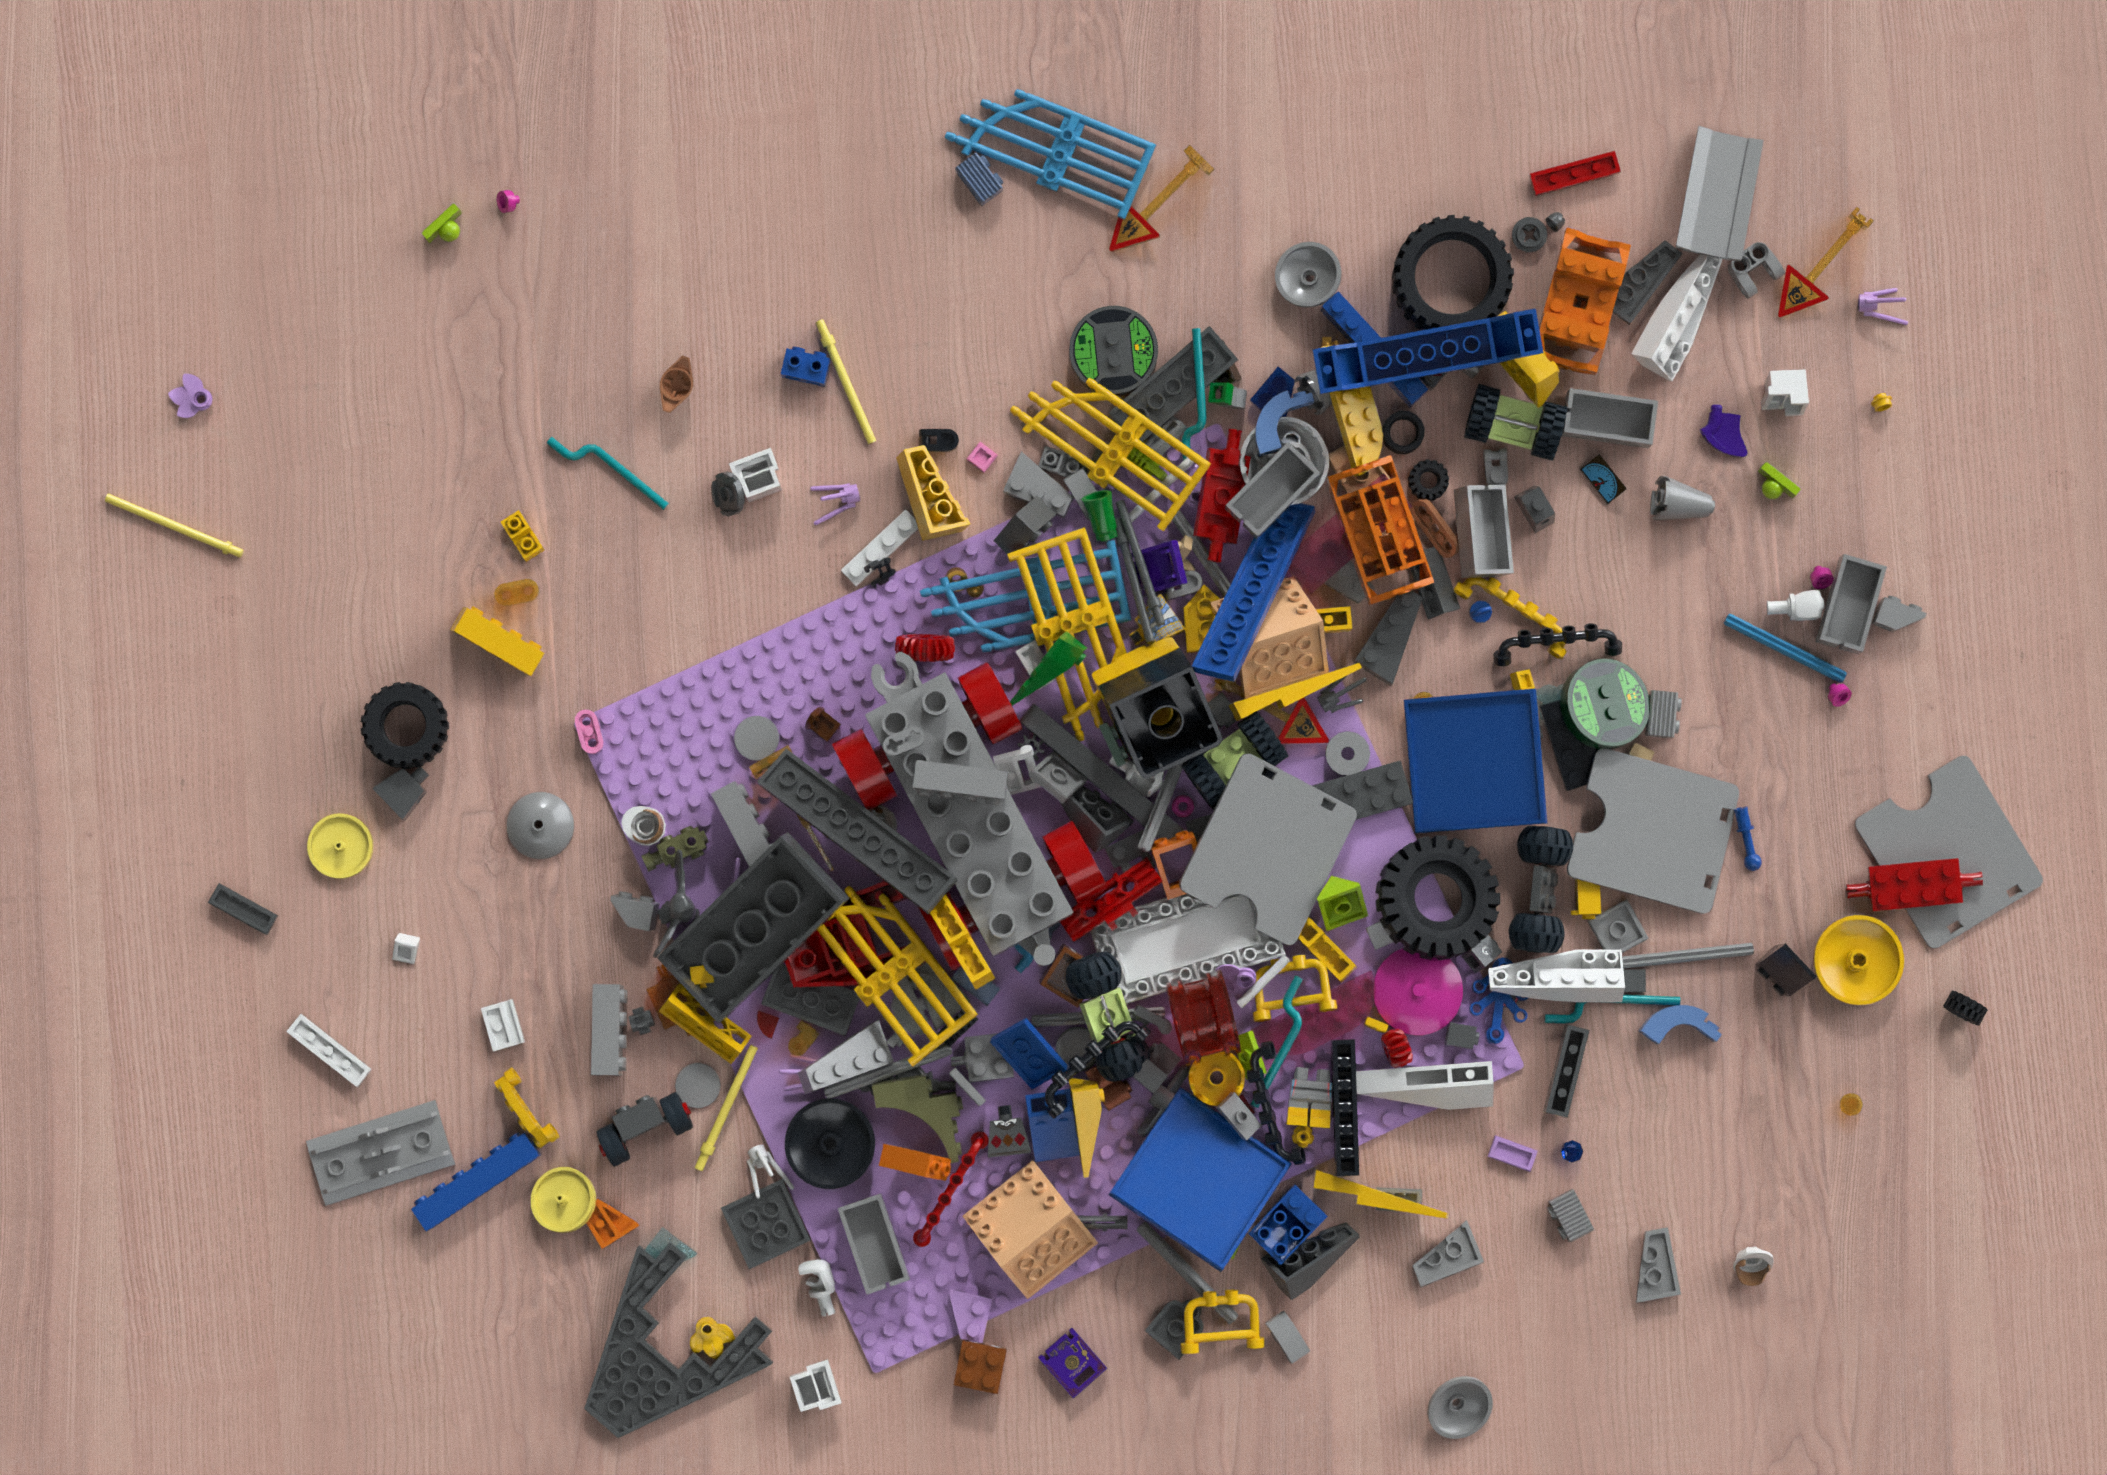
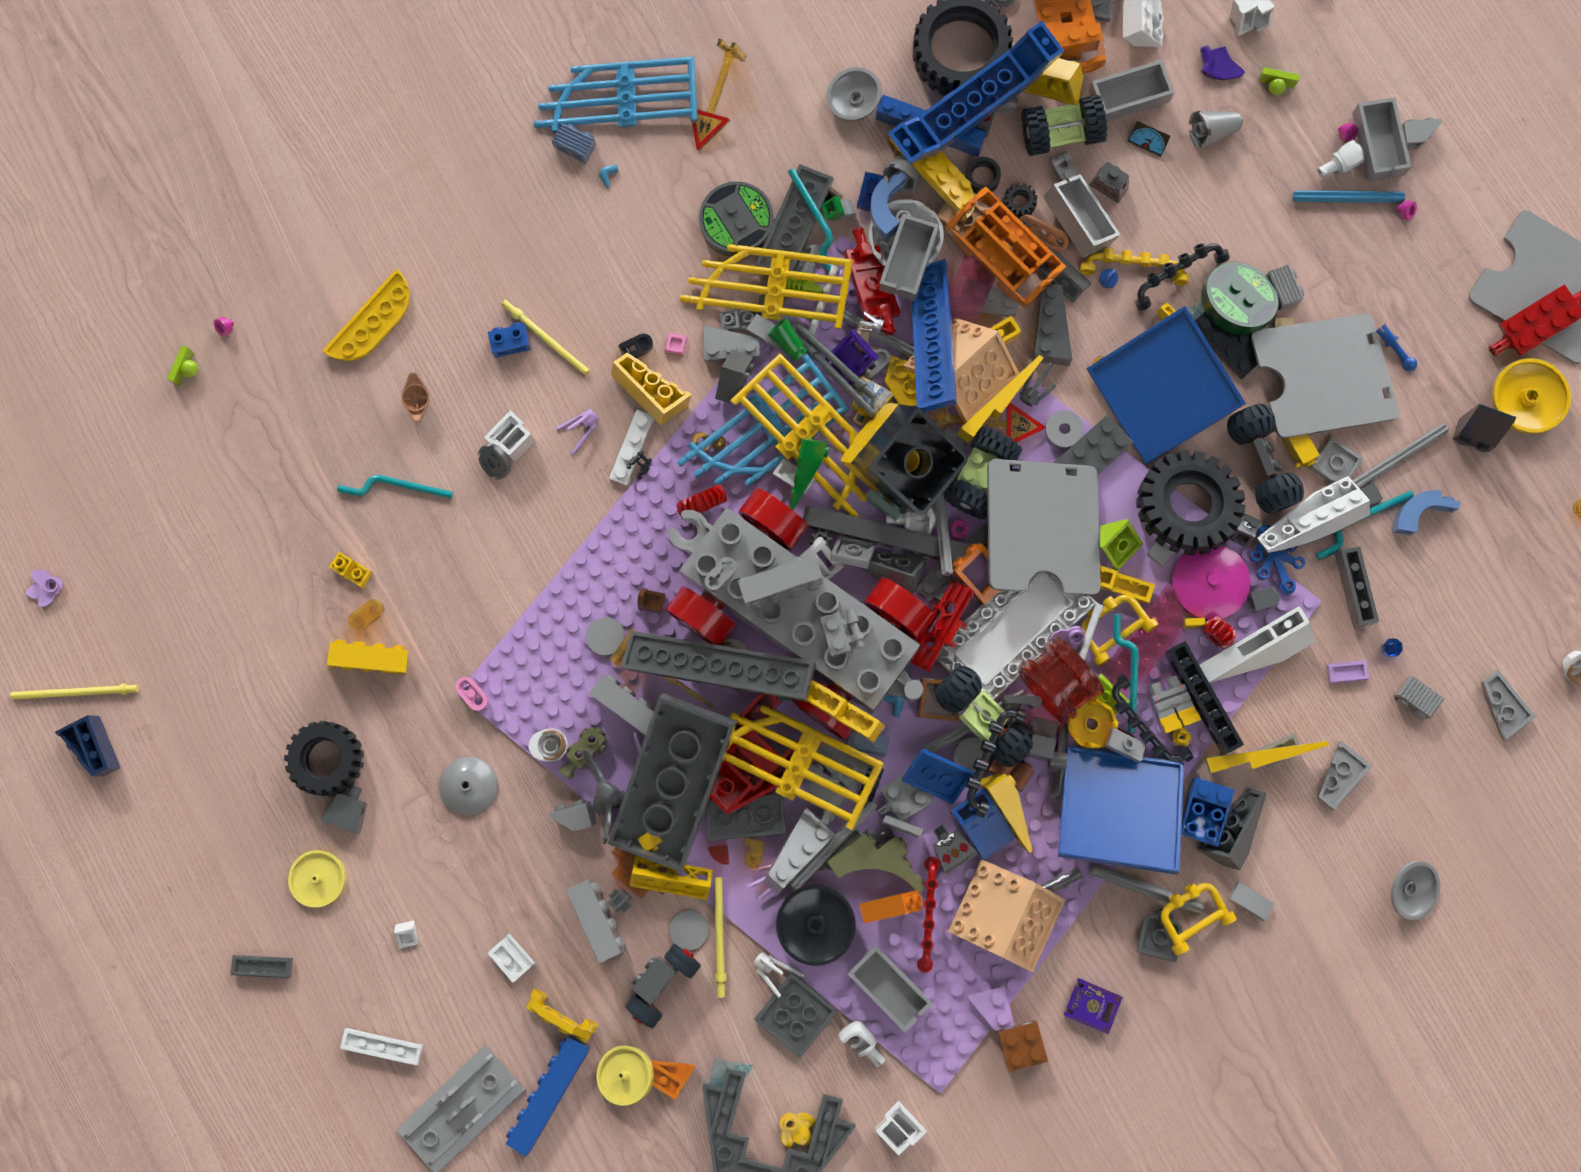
camera: 15 degrees left, 5 degrees down
(168, 592) = (91, 745): none -> dark blue wedge
(669, 273) = (372, 321): none -> yellow plate
(991, 861) = (836, 635): none -> light grey plate
(997, 227) = (604, 172): none -> dark azure animal
(1199, 548) = (874, 327): none -> flat silver piece

